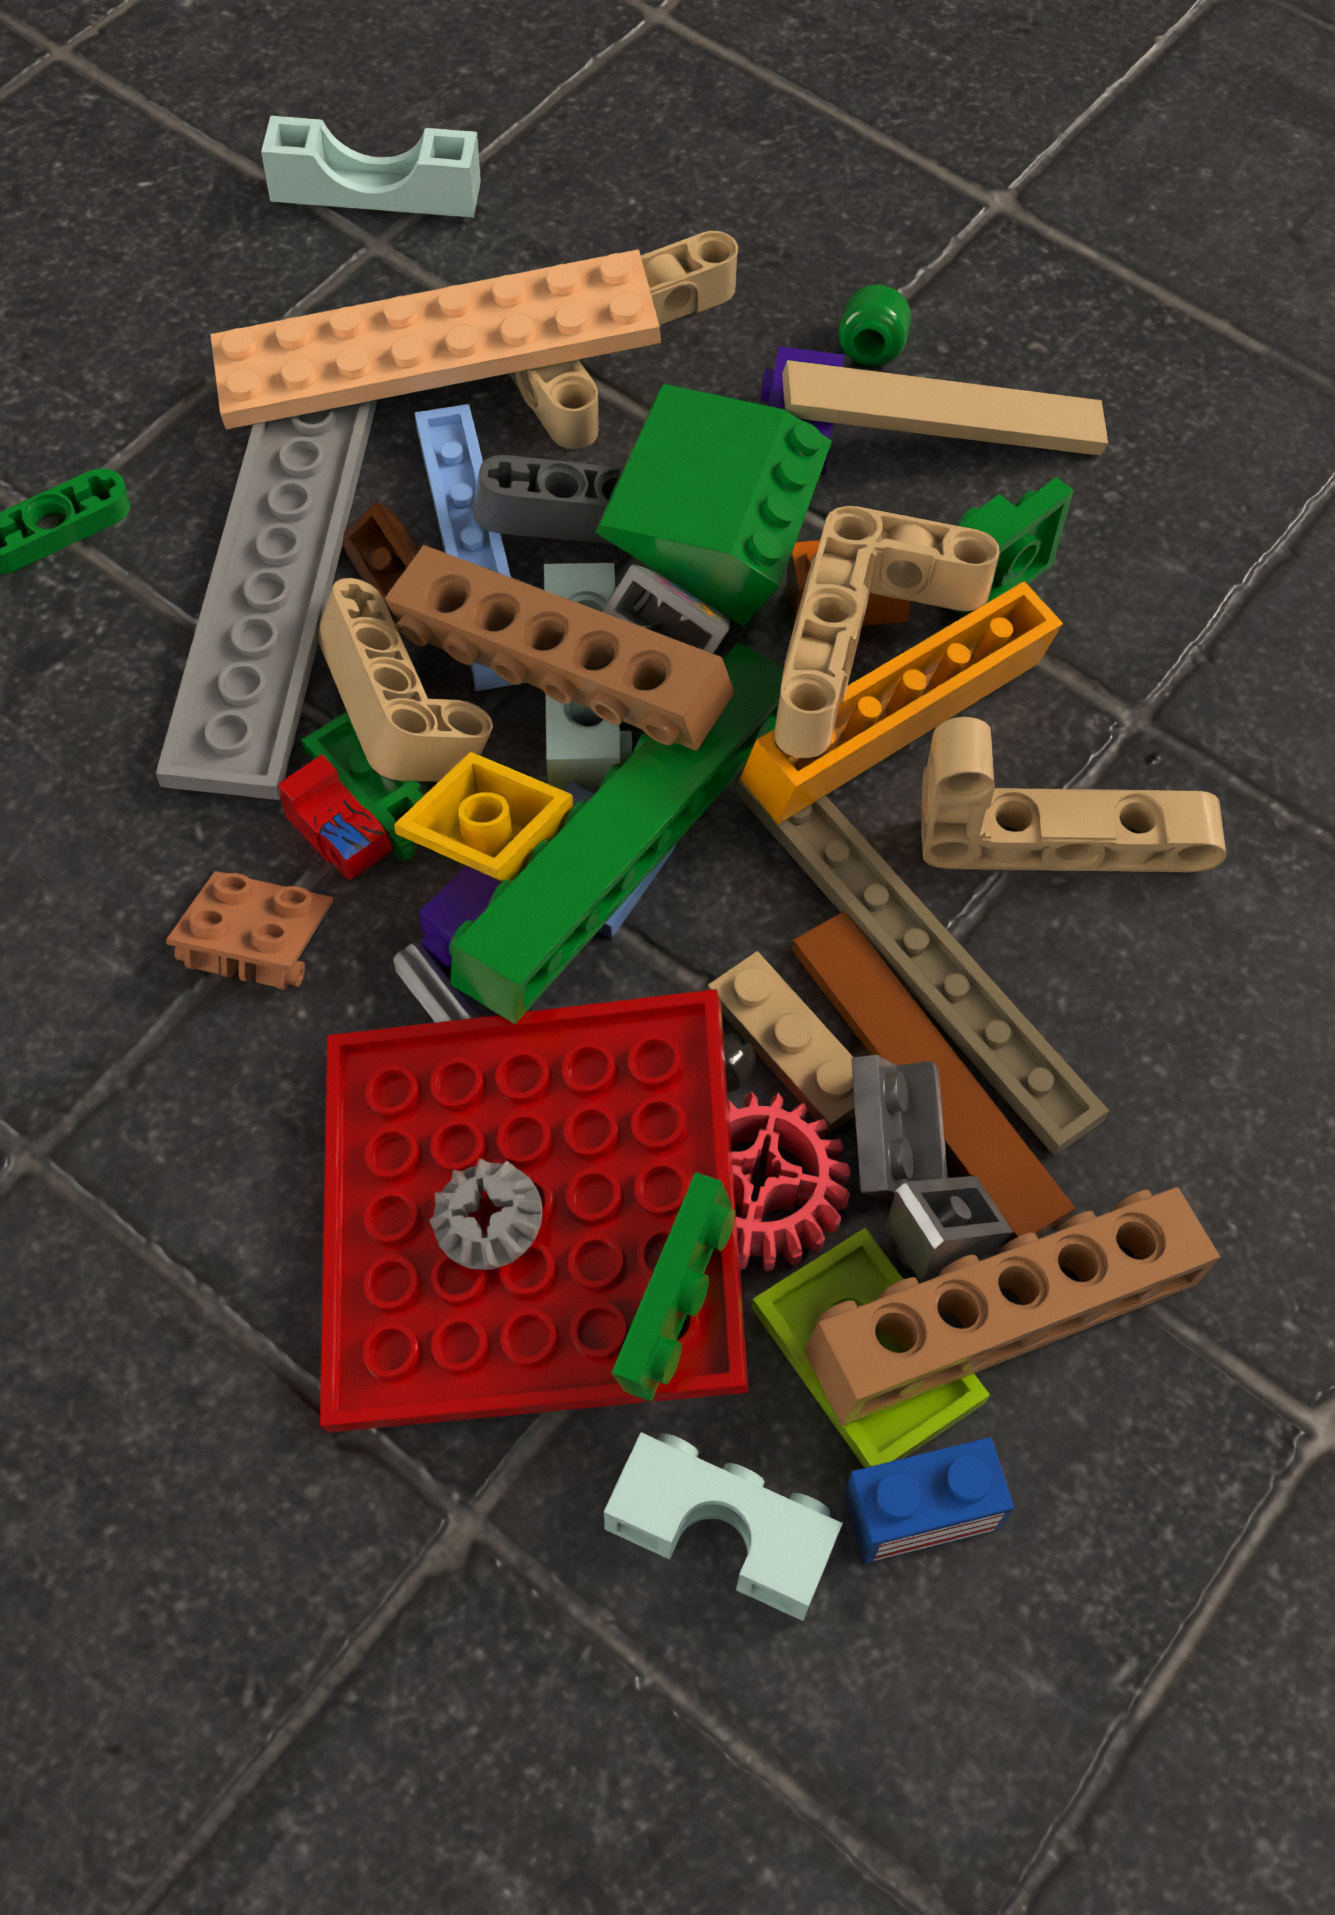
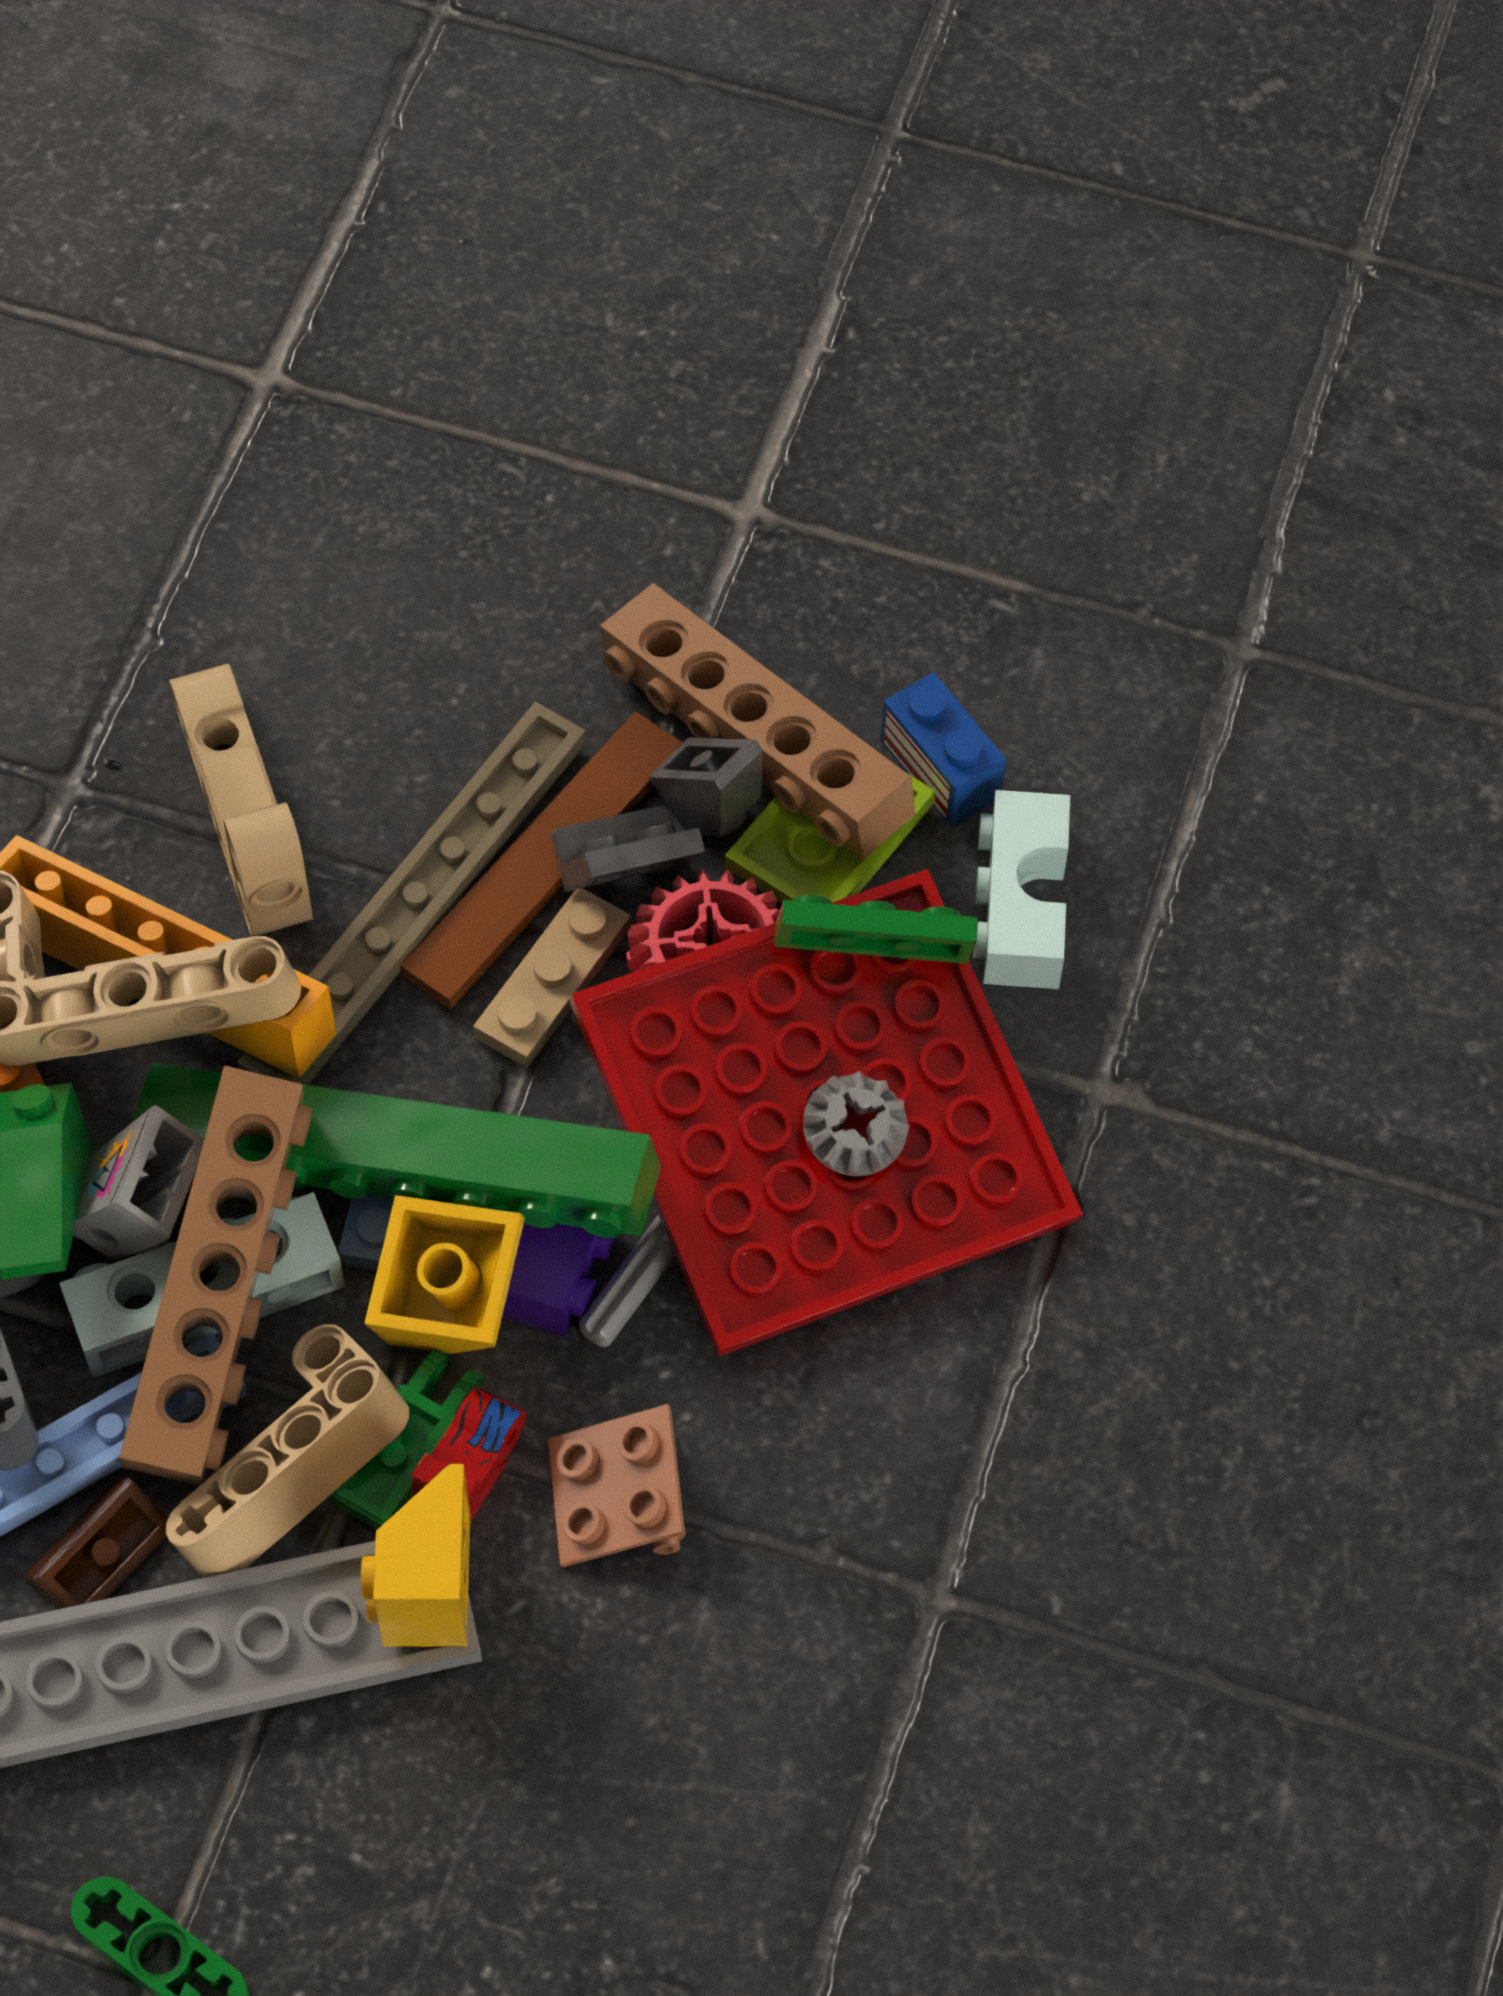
camera: 110 degrees left, 0 degrees up
(209, 718) = (421, 1567): none -> yellow slope

